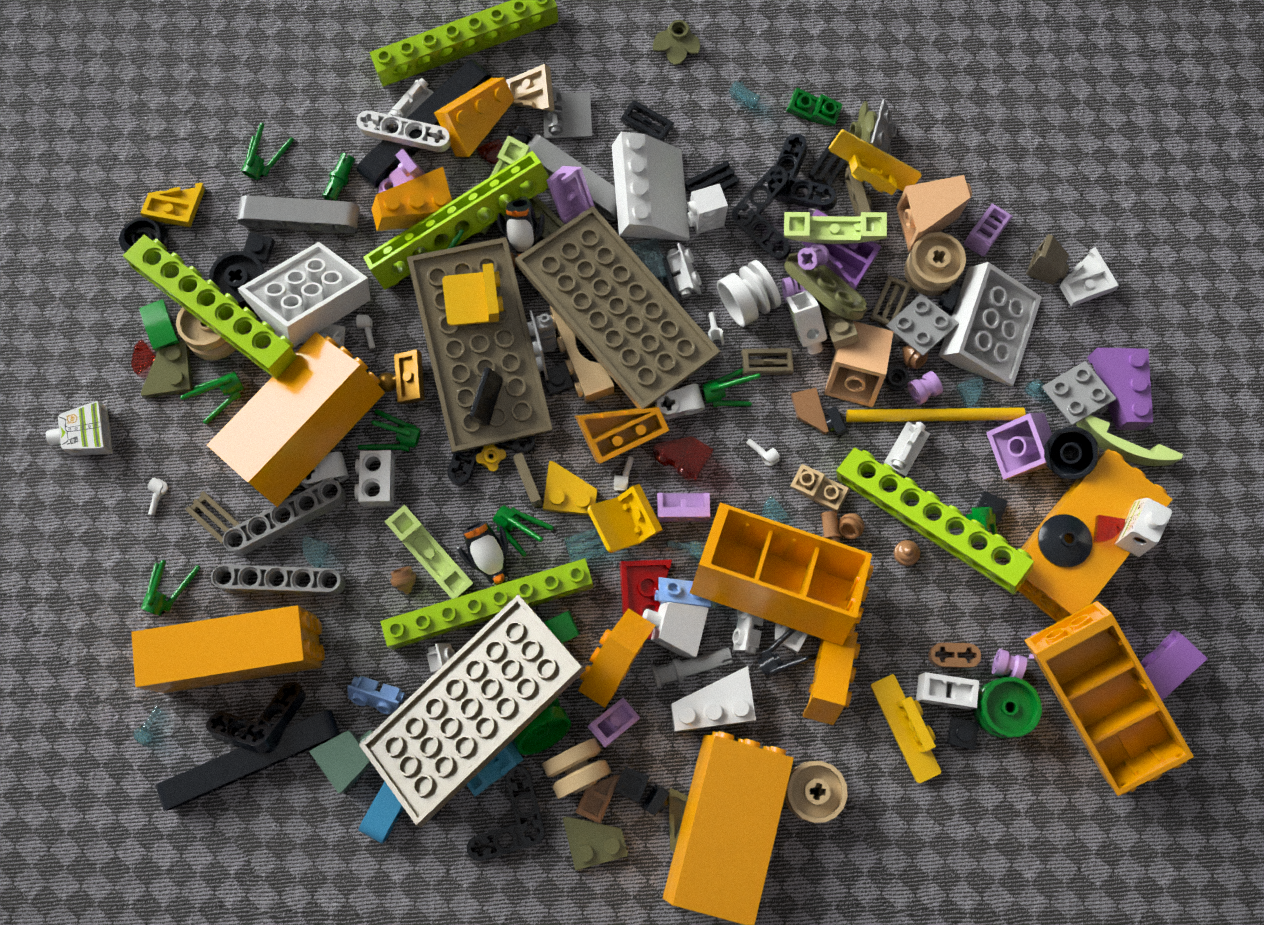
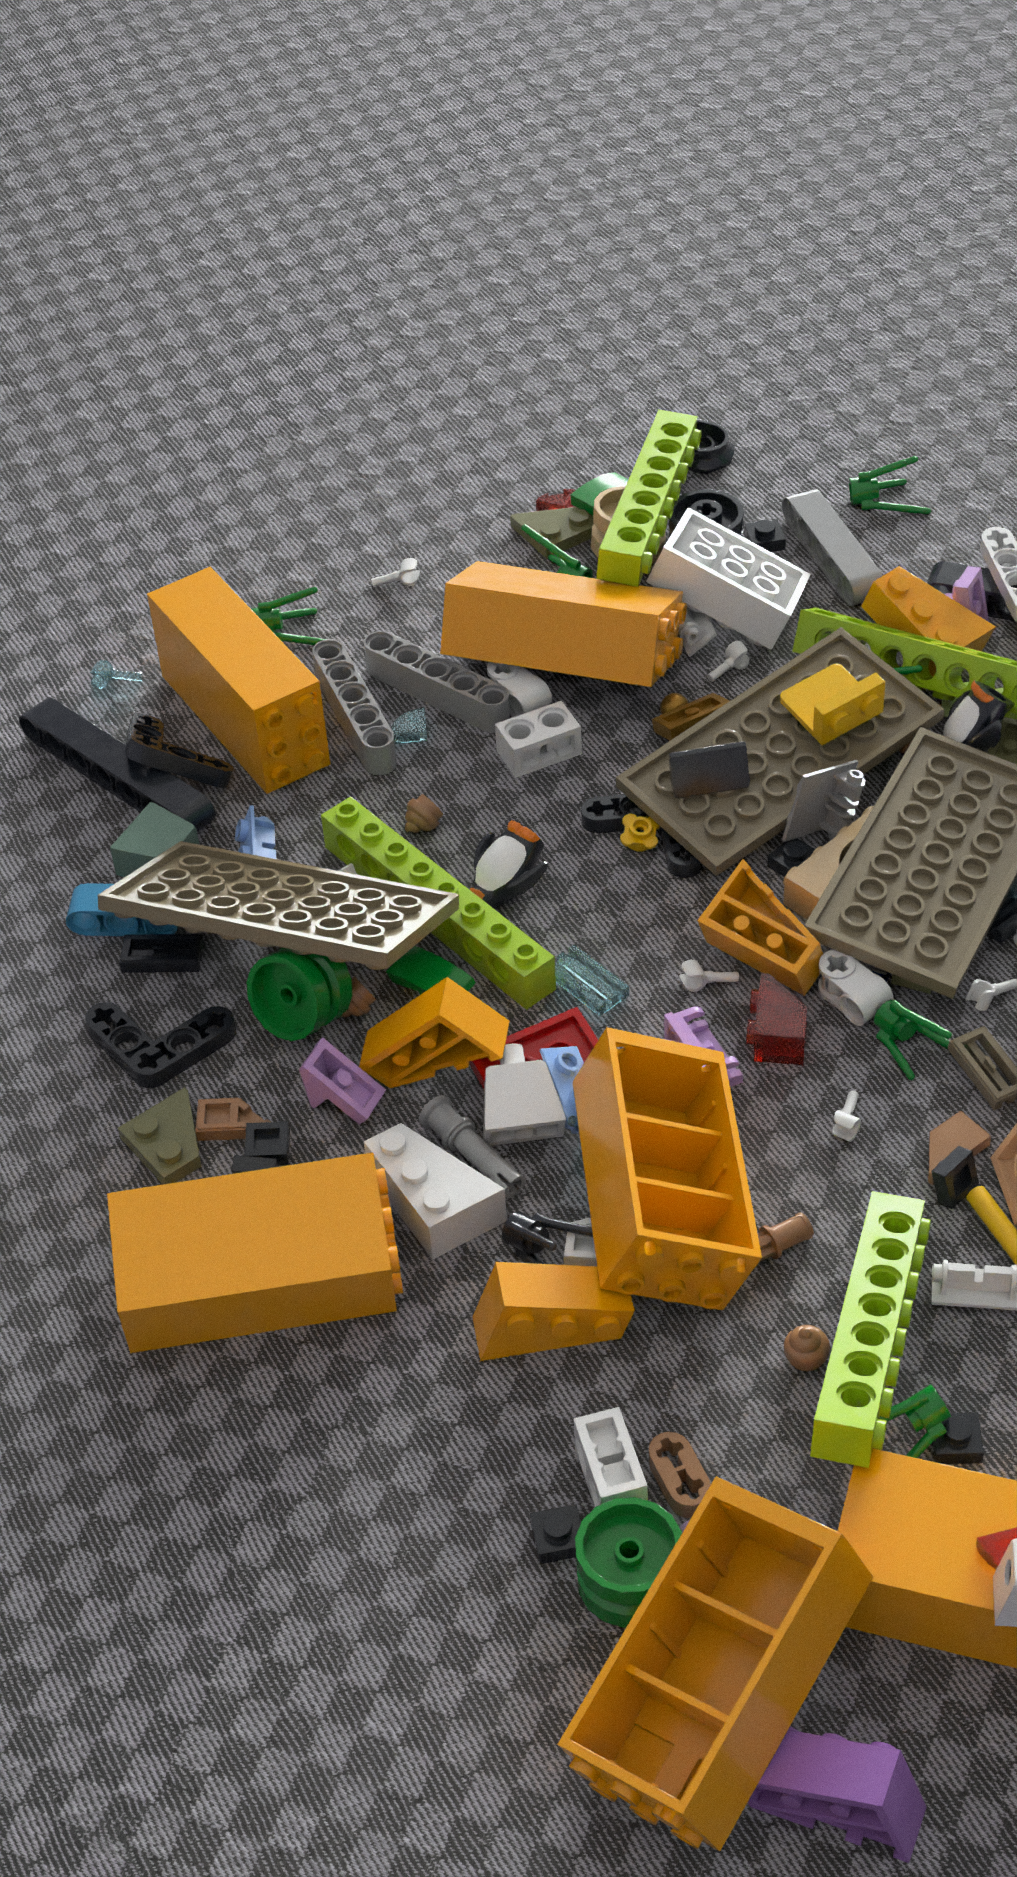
camera: 70 degrees right, 30 degrees down
(83, 431) = (439, 490): white torso -> none
(173, 205) = (763, 452): yellow wing -> none
(198, 503) = (396, 611): dark tan tile -> none
(338, 177) = (910, 560): green pin -> none
(407, 434) = (614, 746): green plant -> none
(428, 552) = (477, 817): yellowish green slope -> none
(495, 769) = (210, 987): medium azure slope -> none
(509, 520) = (563, 882): green plant -> none
(527, 480) = (630, 876): dark tan tile -> none
(567, 492) = (642, 929): yellow wing -> none
(578, 771) = (256, 1058): tan wheel -> none
(625, 520) = (633, 985): yellow bracket -> none
(744, 636) = (555, 1192): white hinge -> none
(773, 510) = (764, 1162): clear light blue tile -> none
(819, 488) = (837, 1202): tan slope -> none
(831, 792) = (361, 1353): tan wheel -> none
(851, 526) = (804, 1257): medium nougat plate -> none
(908, 728) = (521, 1450): yellow bracket -> none
(1054, 546) = (946, 1518): black dish -> none

